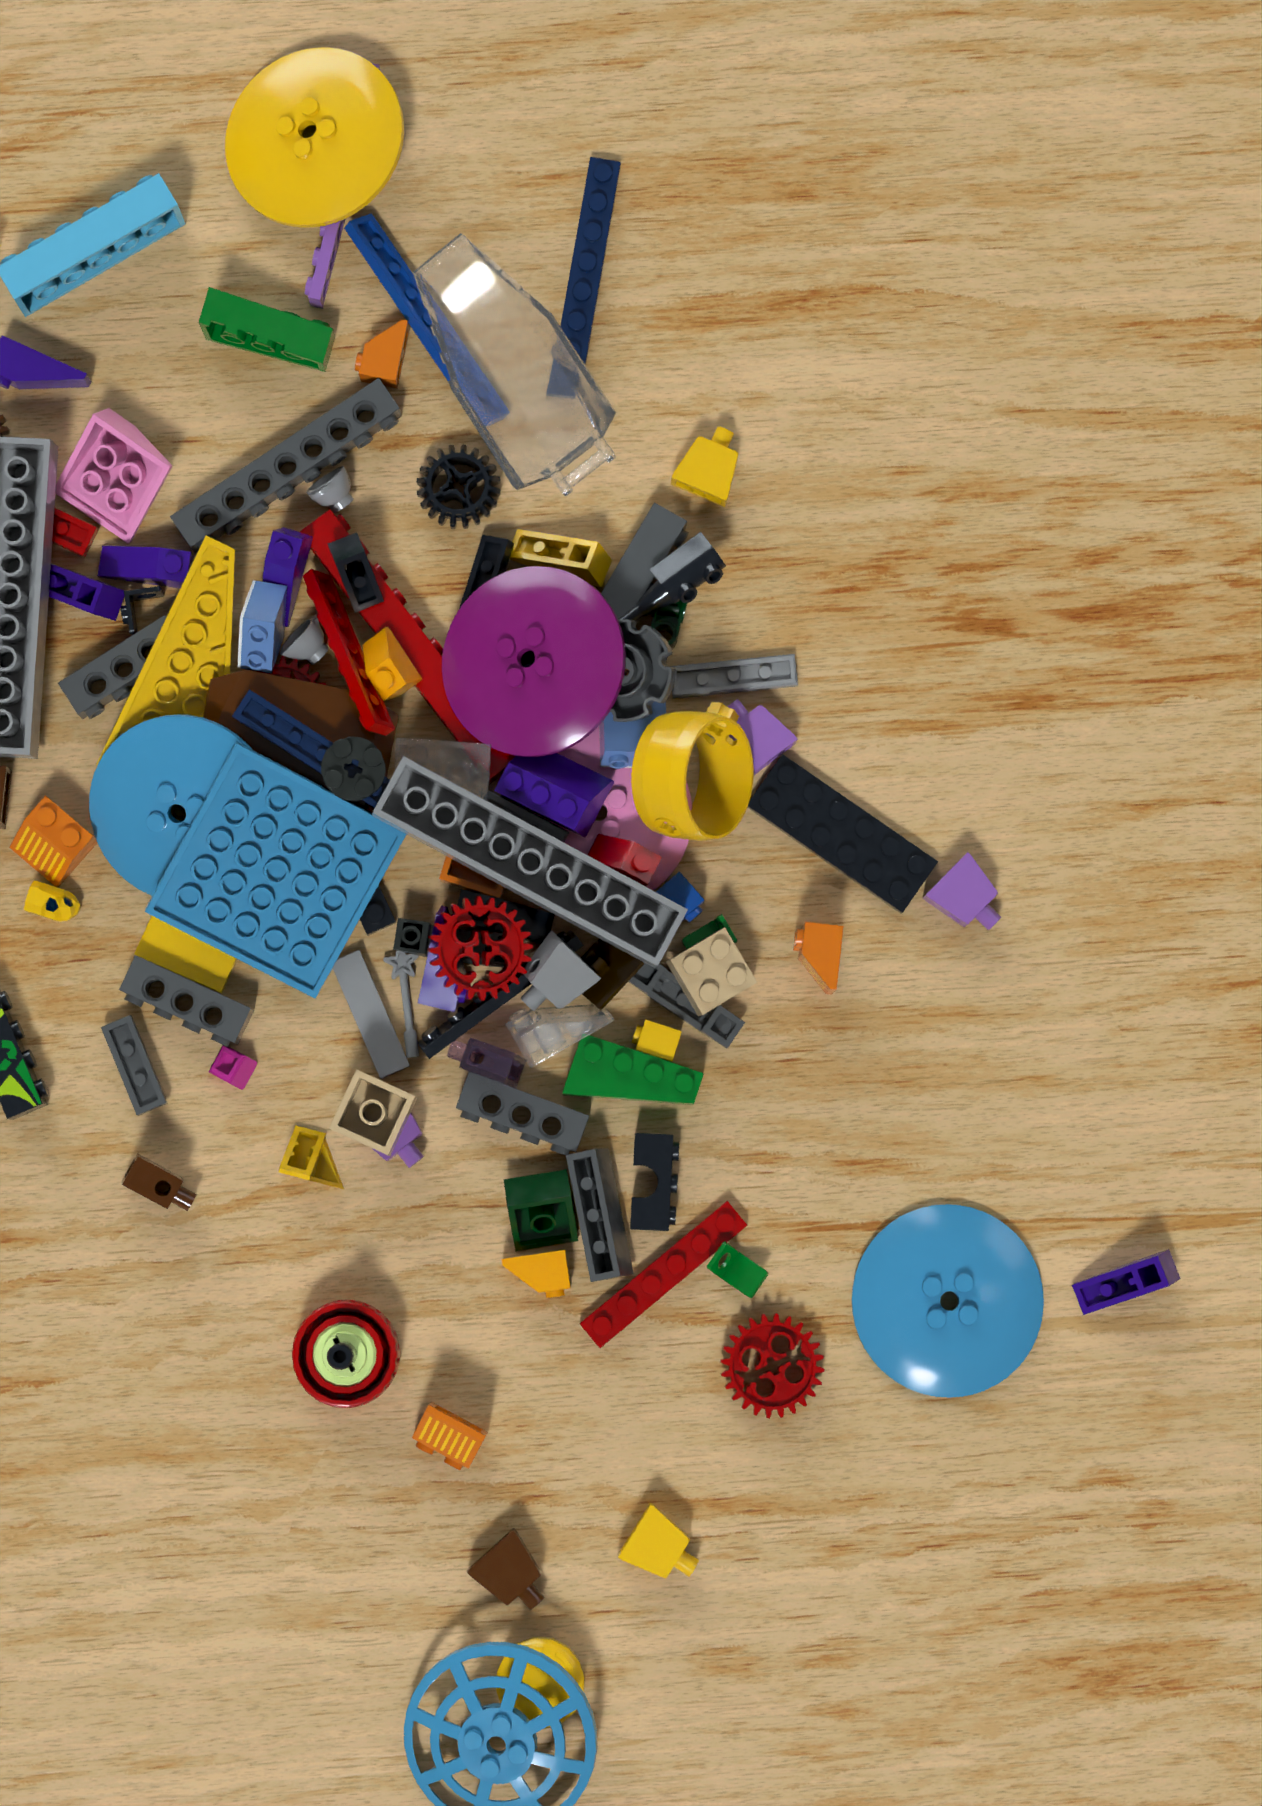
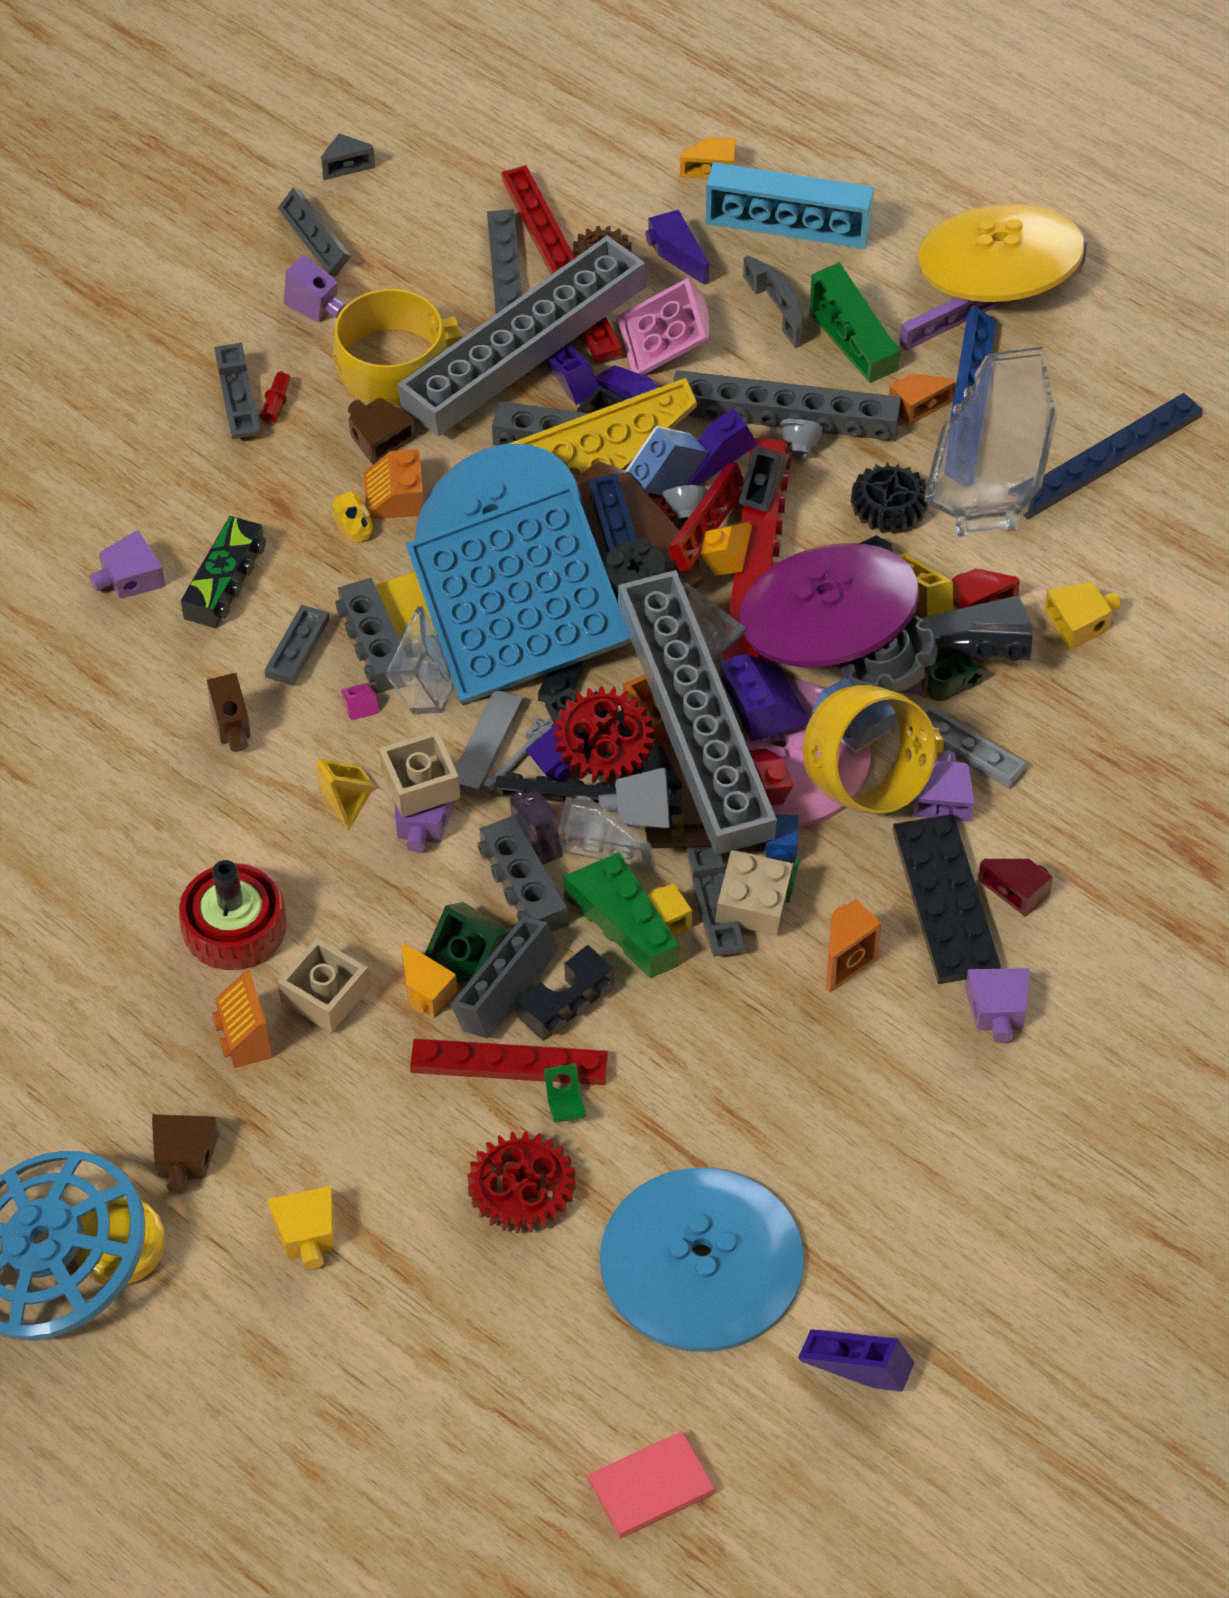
camera: 50 degrees right, 30 degrees down
(137, 341) = (764, 278): none -> dark grey slope
(264, 1004) = (420, 667): none -> clear slope
(475, 1348) = (324, 985): none -> tan brick
(614, 519) = (982, 587): none -> red slope
(887, 774) = (1016, 882): none -> dark red slope
(1076, 1504) = (651, 1484): none -> coral tile

